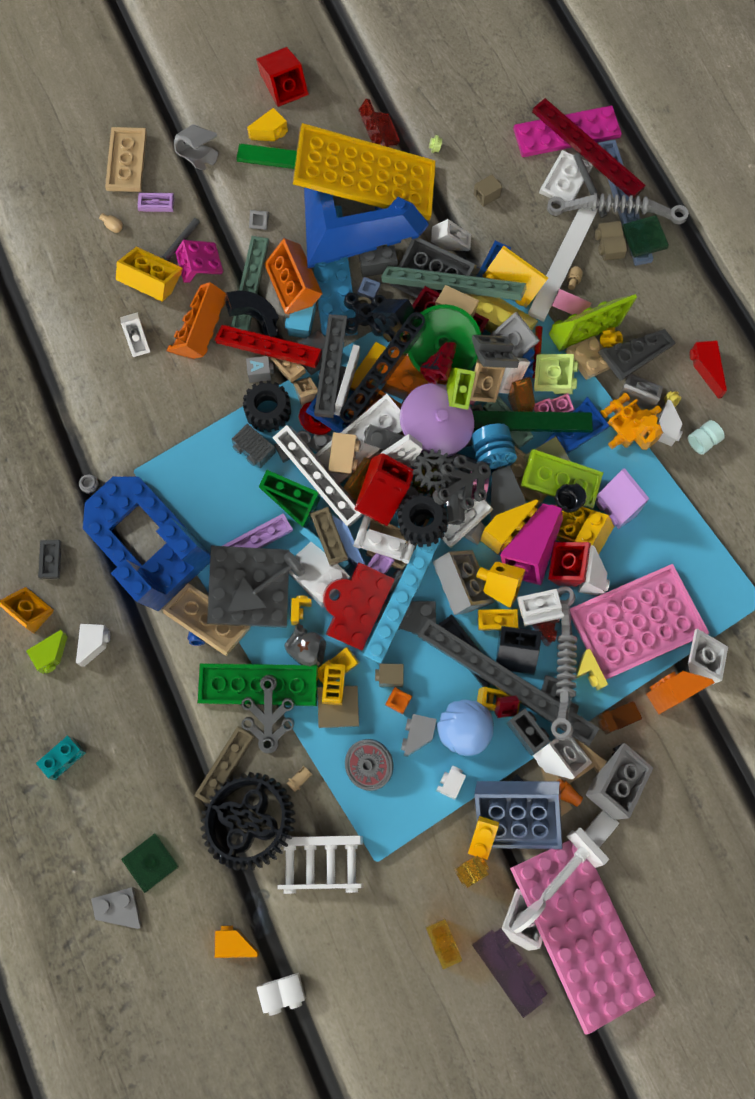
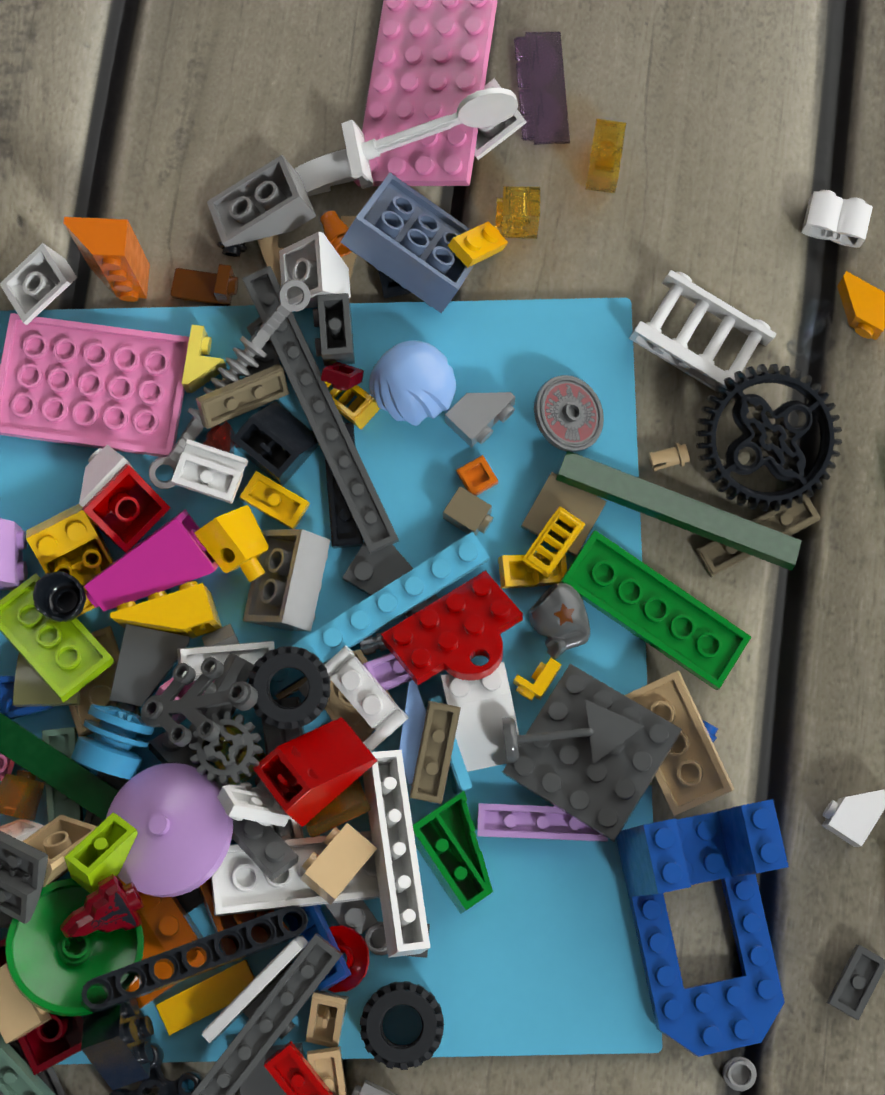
camera: 145 degrees left, 5 degrees up
(253, 446) = (460, 973): dark grey brick -> none
(267, 717) = (666, 555): dark grey plant -> none
(275, 747) = (679, 510): none -> tile
(451, 782) = (475, 329): white brick -> none
(552, 662) = (242, 396): none -> dark tan tile

